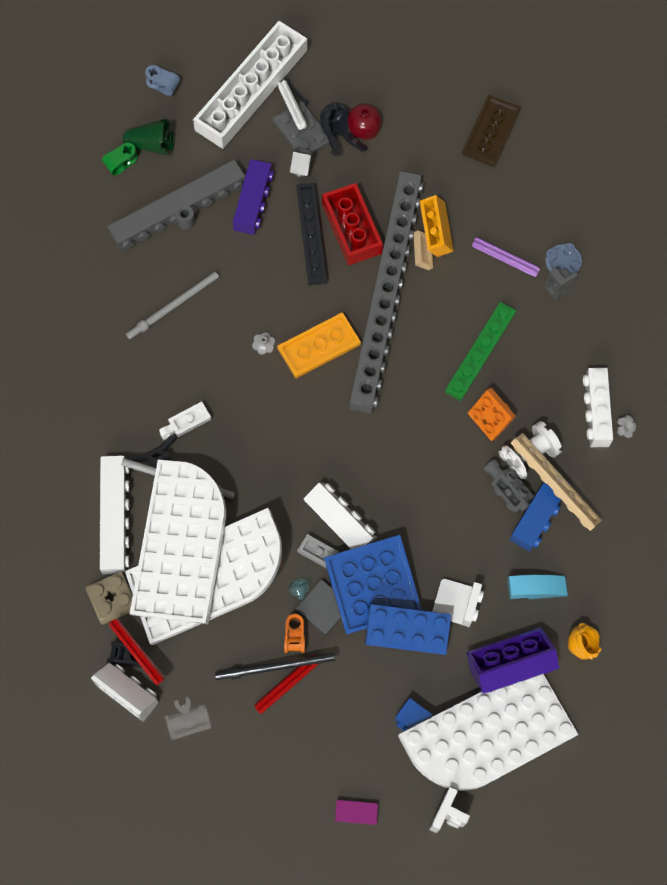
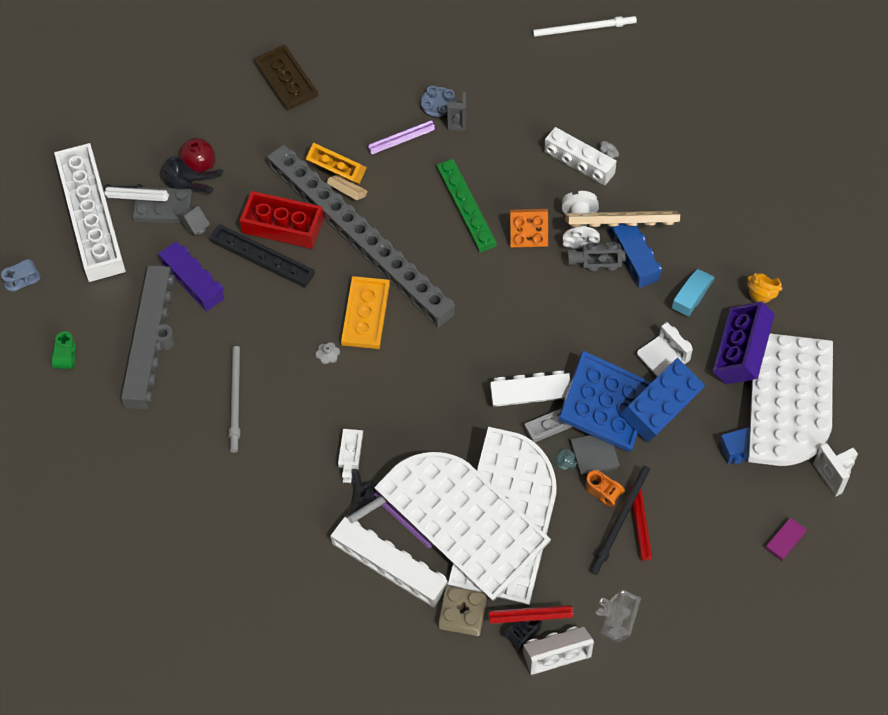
camera: 50 degrees left, 10 degrees down
(151, 137) = (67, 315): dark green cone -> none

